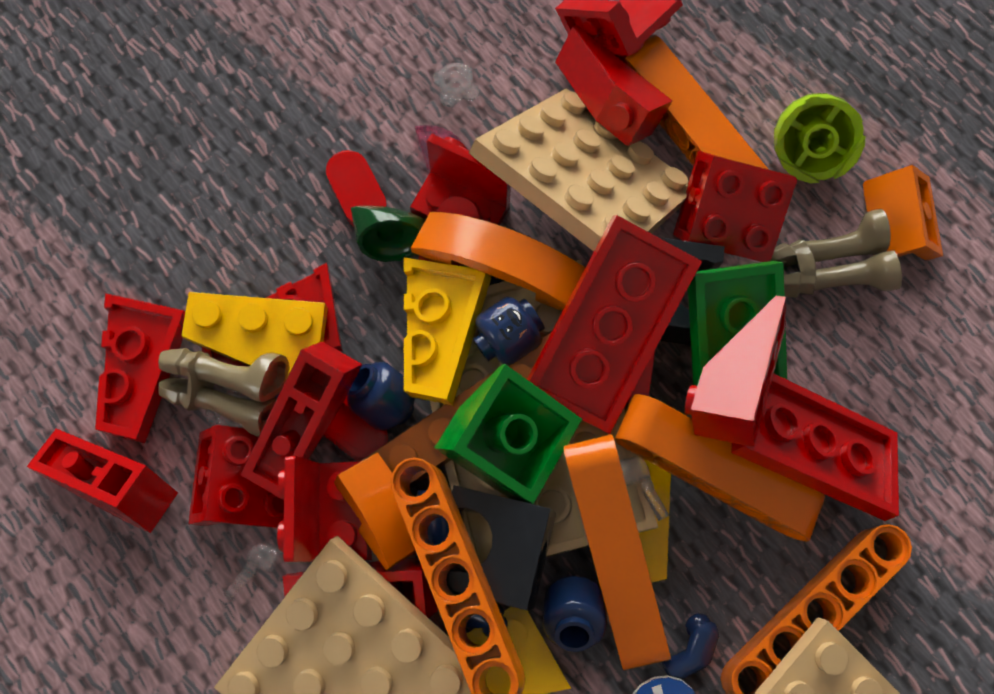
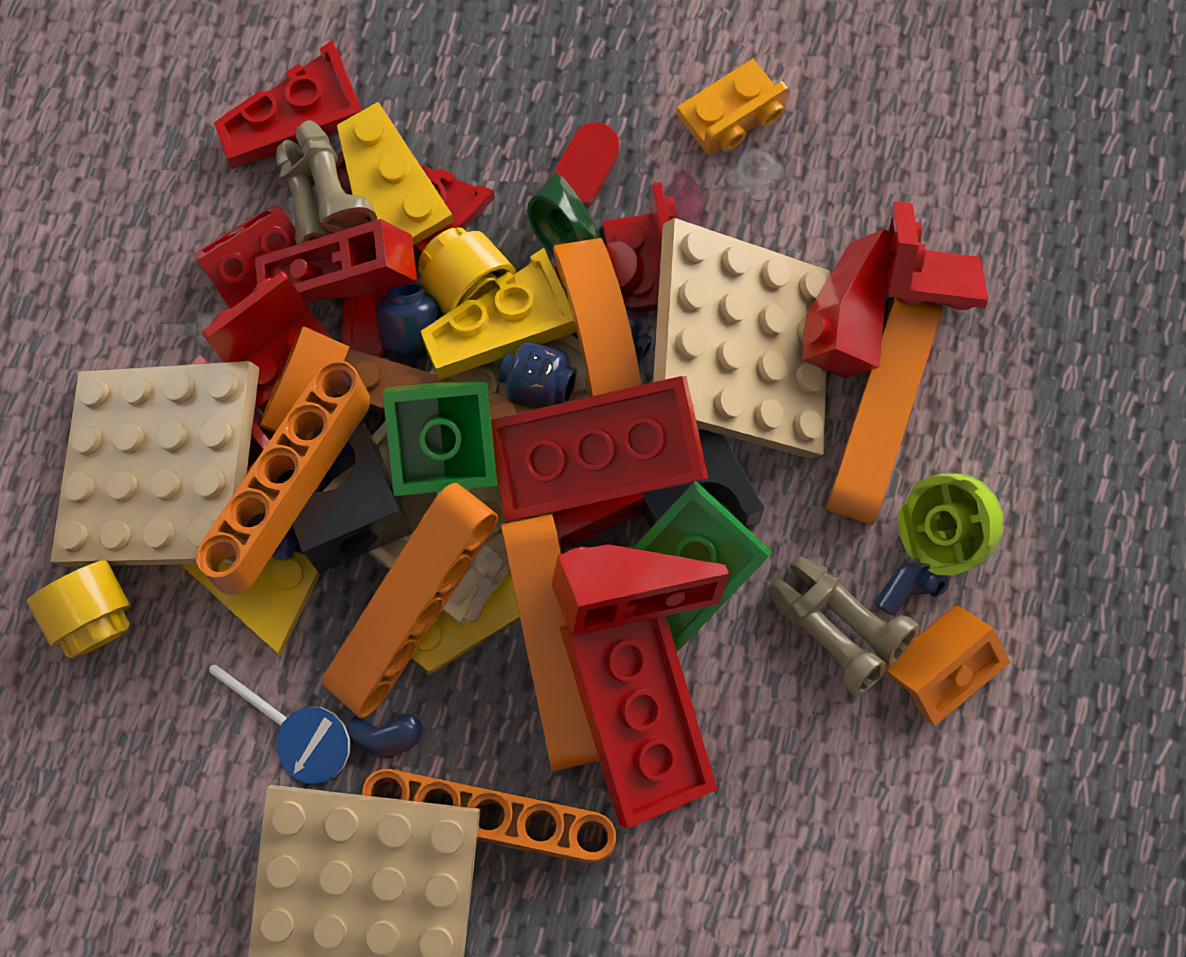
camera: 55 degrees right, 0 degrees up
(104, 479) = (178, 161): red slope -> none
(373, 327) = (460, 267): none -> yellow piece
(393, 63) = (733, 106): none -> light orange bracket
(574, 613) = (334, 607): dark blue head -> none
(735, 206) = (814, 496): red bracket -> none
(828, 200) = (907, 581): none -> dark blue arm

